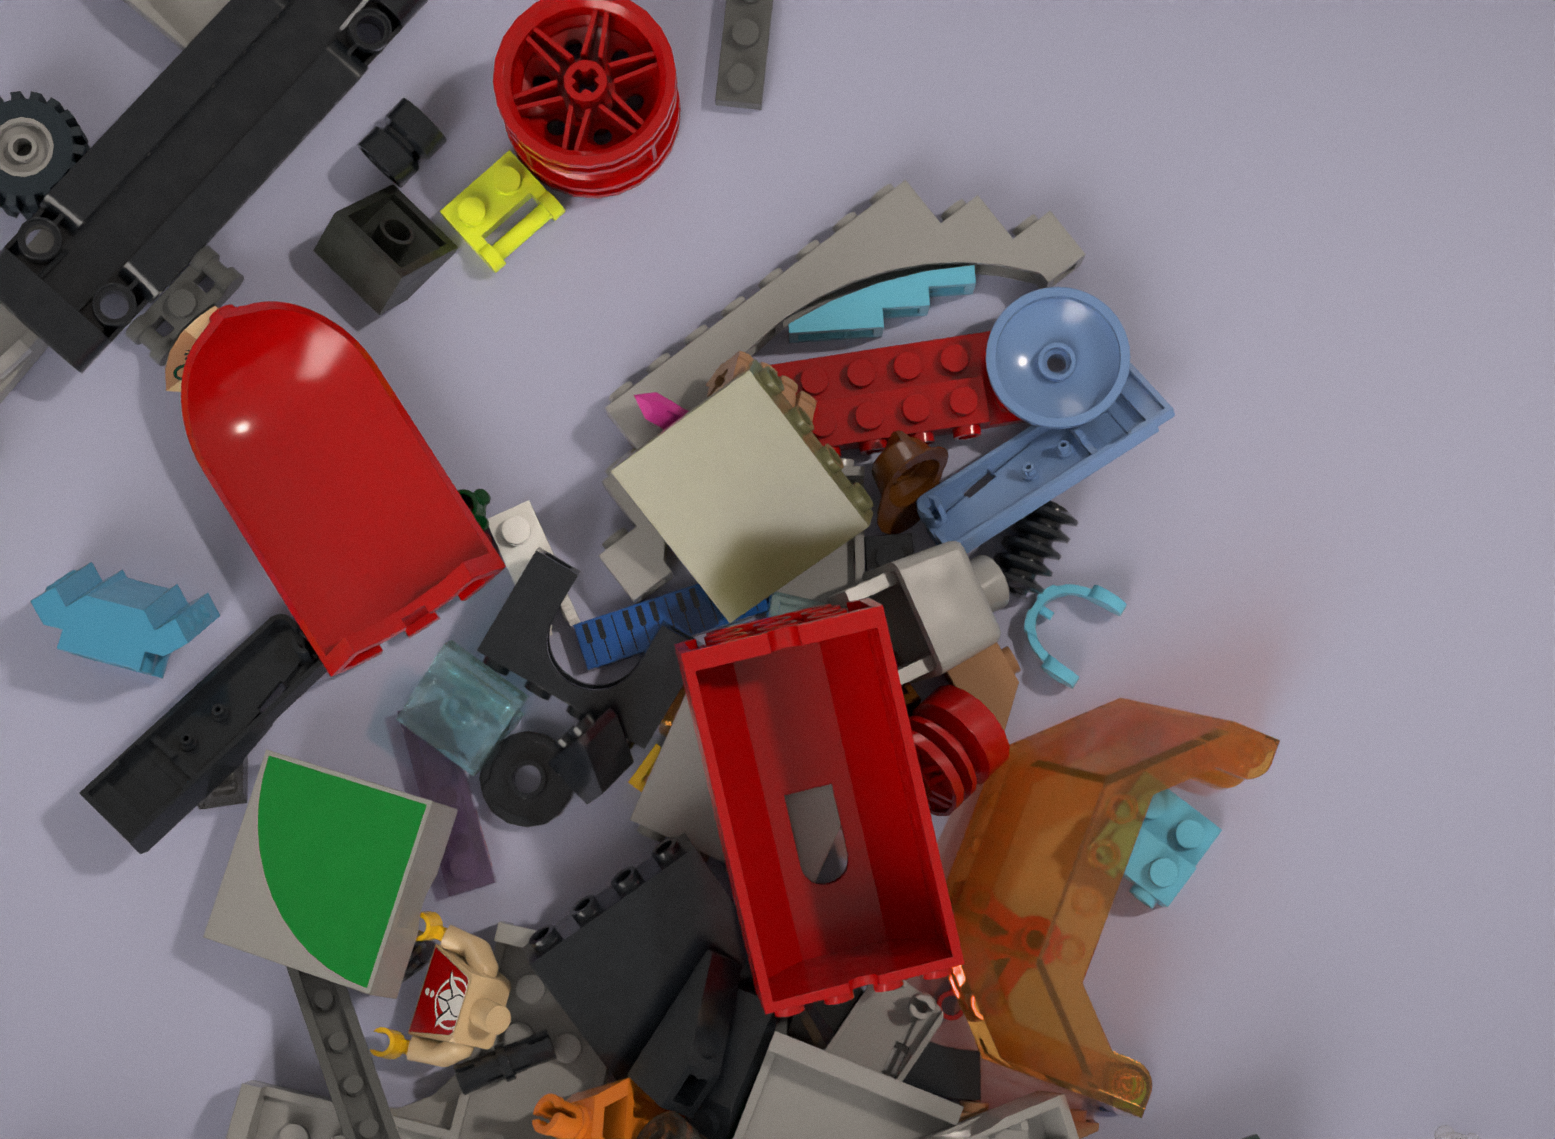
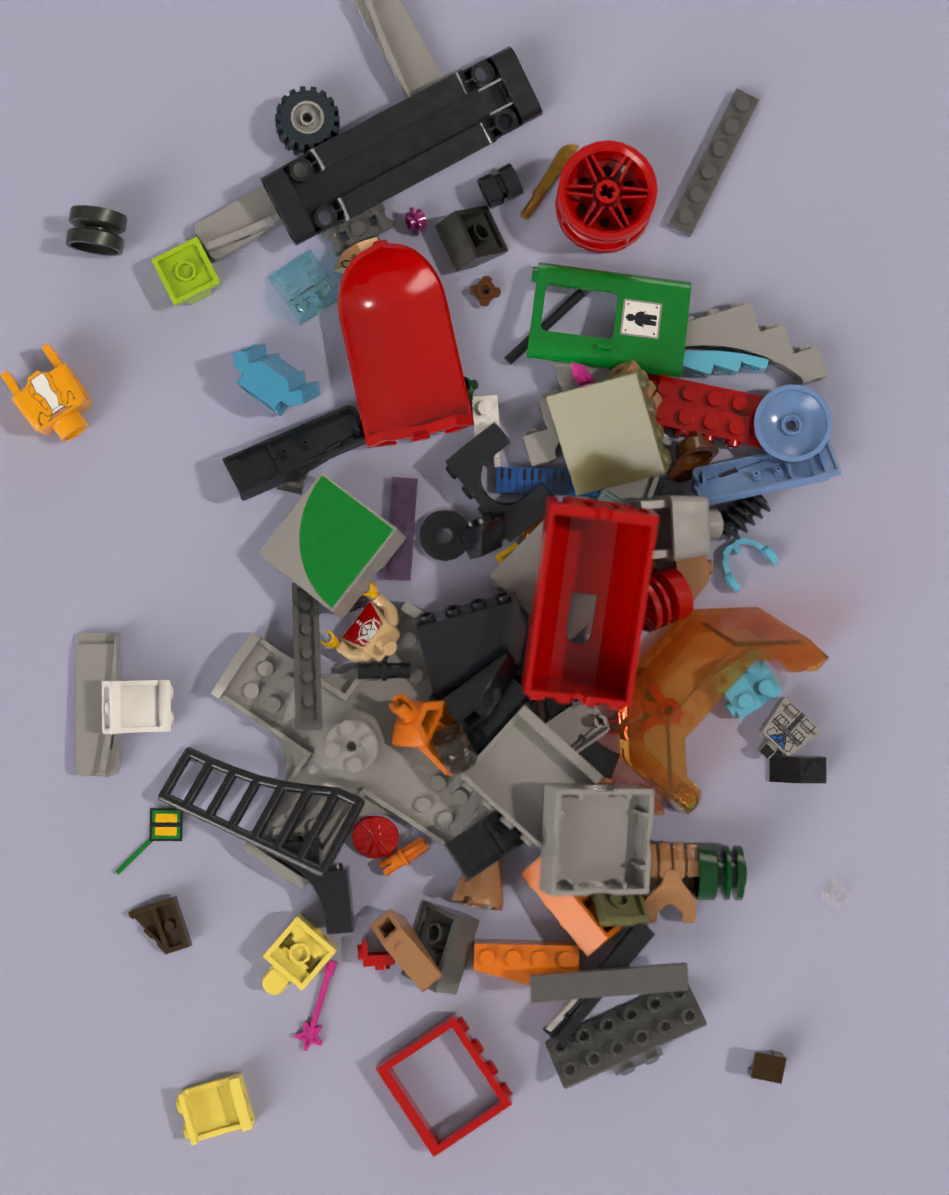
camera: 20 degrees right, 5 degrees up
(125, 439) = (305, 287): none -> clear light blue bracket
(277, 254) = (415, 220): none -> magenta plate
(446, 343) = (486, 283): none -> reddish brown plate
(463, 708) = (427, 487): clear light blue bracket -> none
(479, 110) = (548, 179): none -> pearl gold piece
(492, 201) = (534, 233): neon yellow plate -> none
(568, 353) = (550, 321): none -> black bar
(741, 282) = (647, 322): none -> green piece
(1254, 895) = (786, 730): none -> torso
(1302, 957) = (797, 769): none -> black slope

